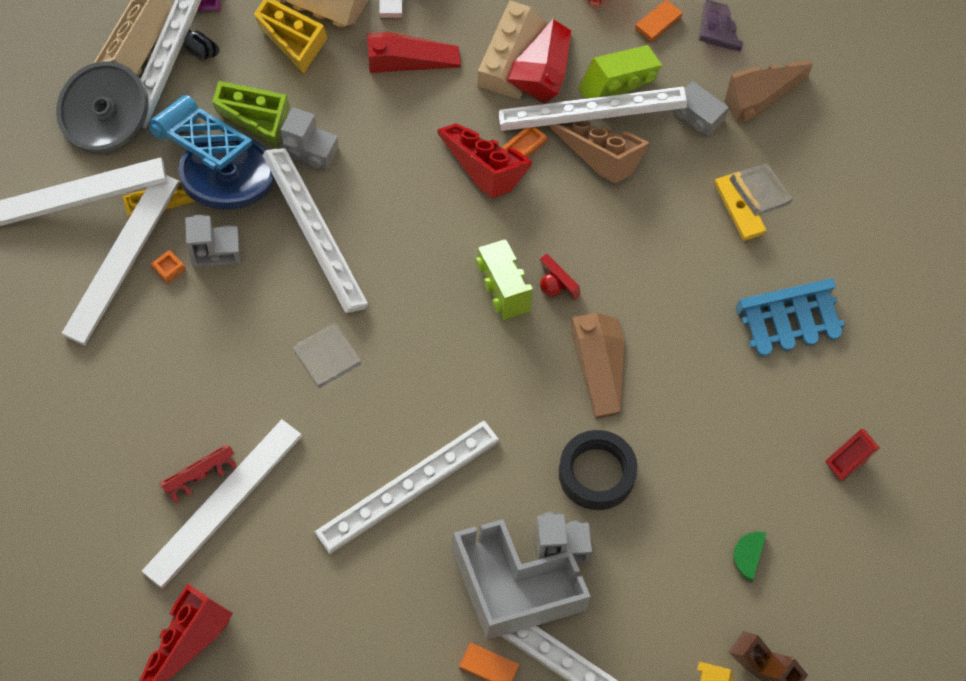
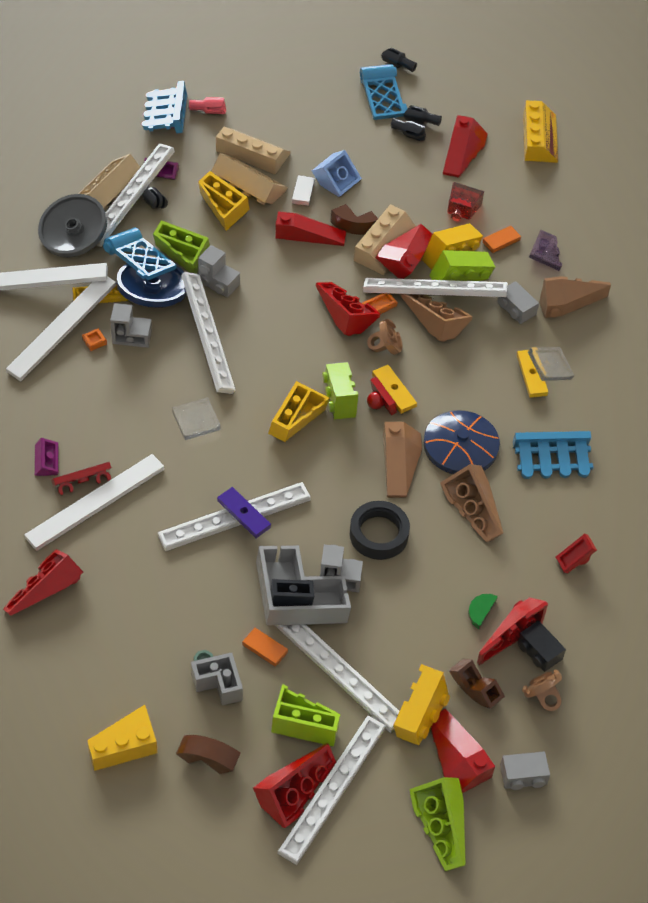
camera: 10 degrees right, 10 degrees down
(144, 451) = (46, 457): none -> magenta slope
(409, 473) = (244, 512): none -> dark purple tile
(455, 321) = (297, 411): none -> yellow wedge
(457, 32) = (346, 220): none -> reddish brown brick
(512, 594) = (292, 592): none -> black brick
(550, 194) = (388, 338): none -> medium nougat tile
(564, 254) = (396, 389): none -> yellow tile
(600, 38) = (455, 239): none -> yellow wedge
(672, 322) = (460, 440): none -> dark blue dish
(706, 400) = (473, 497): none -> medium nougat wedge
(804, 561) = (521, 617): none -> red wedge
(836, 593) = (541, 646): none -> black brick
(851, 650) = (543, 686): none -> medium nougat tile

